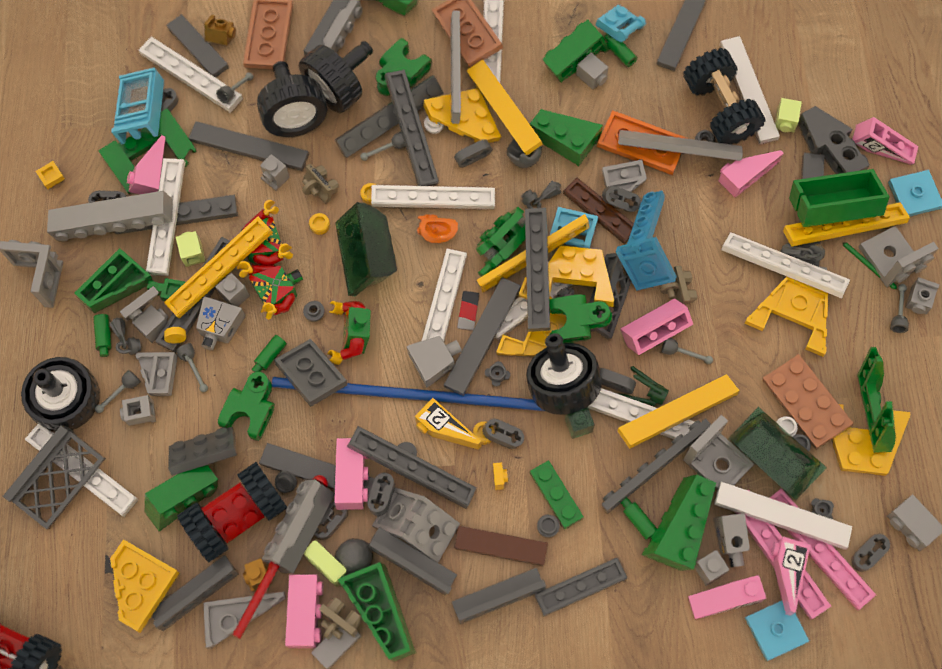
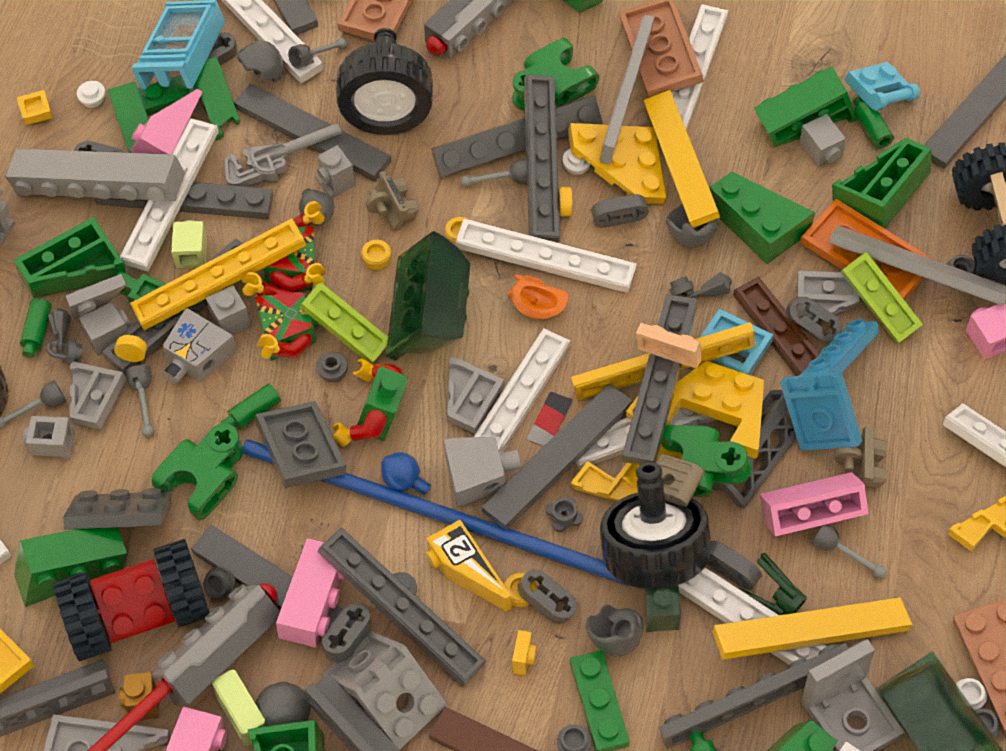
camera: 15 degrees right, 10 degrees down
(86, 155) = (91, 94): none -> white plate
(201, 102) = (263, 60): none -> dark grey hair
(224, 175) = (269, 161): none -> light grey piece
(268, 194) = (323, 199): none -> dark grey piece
(314, 279) = (345, 323): none -> lime plate
(333, 523) = (265, 653): dark grey beam -> none
(336, 74) = (457, 61): black wheel -> none
(383, 374) = (401, 472): none -> blue piece
(412, 307) = (470, 394): none -> light grey wing
(436, 155) = (565, 201): none -> yellow tile
(494, 239) = (613, 333): green piece -> none
(532, 245) = (668, 345): none -> light nougat plate
(554, 445) = (615, 630): none -> dark grey hair
(571, 334) = (679, 479): none -> dark tan piece
(642, 92) = (887, 183): none -> green wedge
(661, 173) = (881, 298): none -> lime plate

